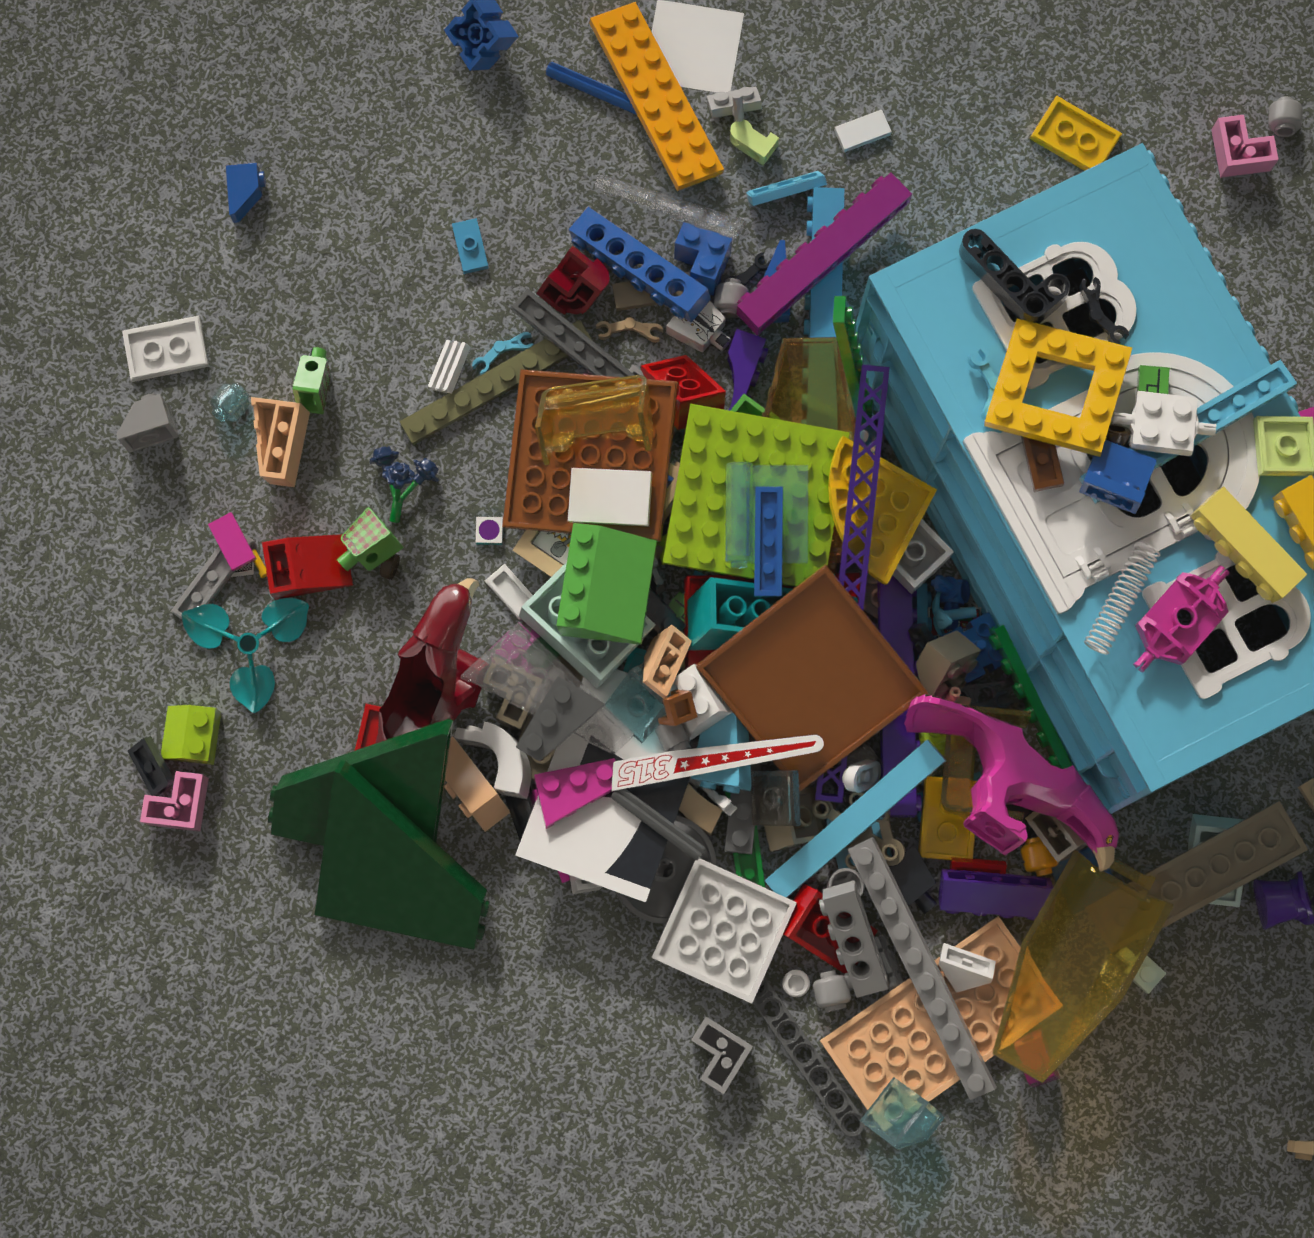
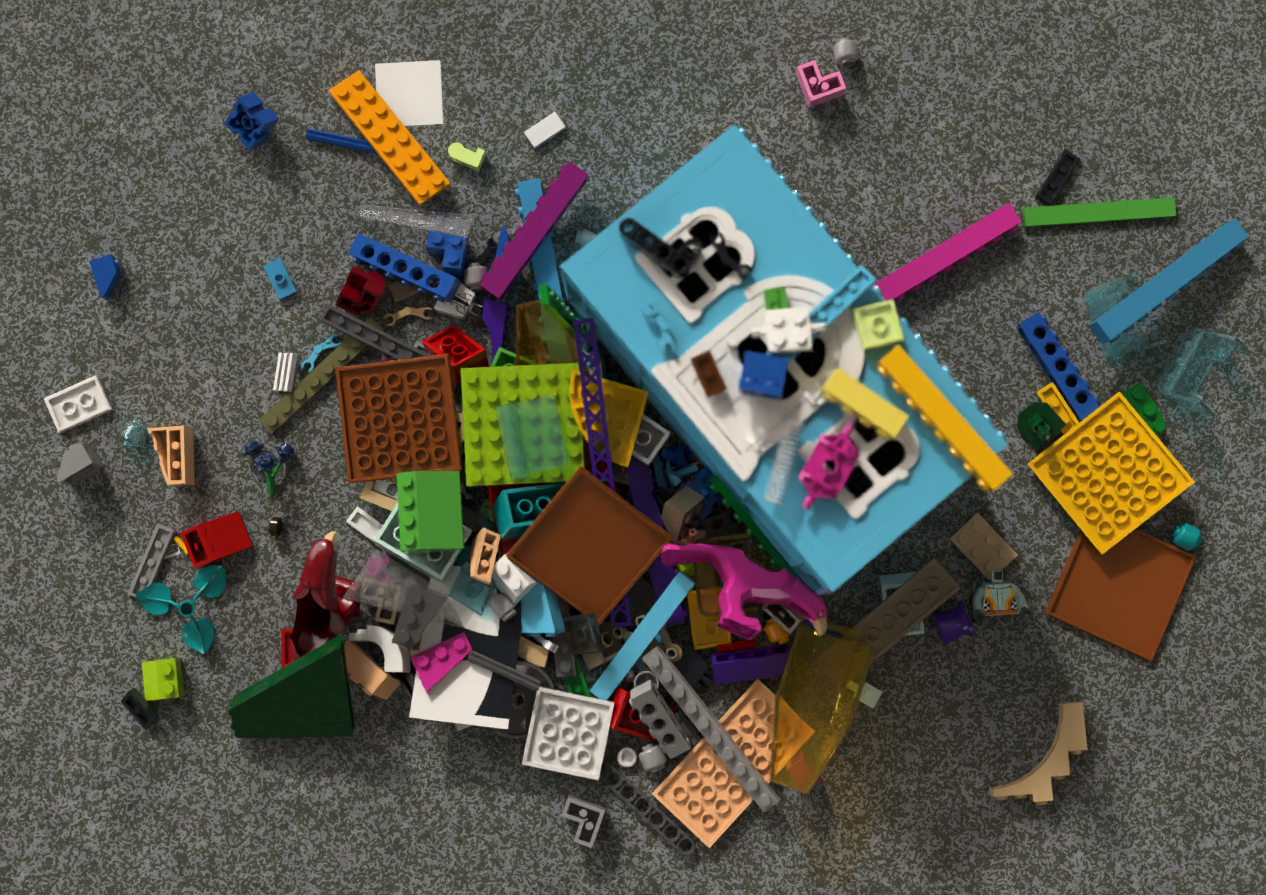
camera: 10 degrees left, 5 degrees up
(183, 809) = (170, 732): bright pink brick -> none
(232, 541) = (159, 535): dark pink tile -> none
(312, 381) = (189, 405): bright green torso -> none
(368, 542) = (256, 514): bright green torso -> none
(390, 872) = (326, 748): dark green slope -> none
(489, 531) = (340, 485): tile -> none
(594, 410) = (392, 387): clear yellow windscreen -> none
(610, 496) = (419, 447): white tile -> none
(678, 708) = (500, 588): dark orange panel -> none
(698, 761) = (525, 620): sticker -> none
(734, 103) = (447, 130): light grey plate -> none
(768, 541) = (537, 456): blue plate -> none
(786, 188) = (498, 186): medium azure tile -> none
(861, 775) = (641, 603): white plate -> none
(902, 1116) = (718, 835): clear light blue slope -> none
(965, 968) = (741, 721): white slope -> none
(1036, 340) = (684, 289): yellow plate -> none
(1075, 135) = (699, 99): yellow tile -> none
(1118, 434) = (756, 345): dark brown tile -> none

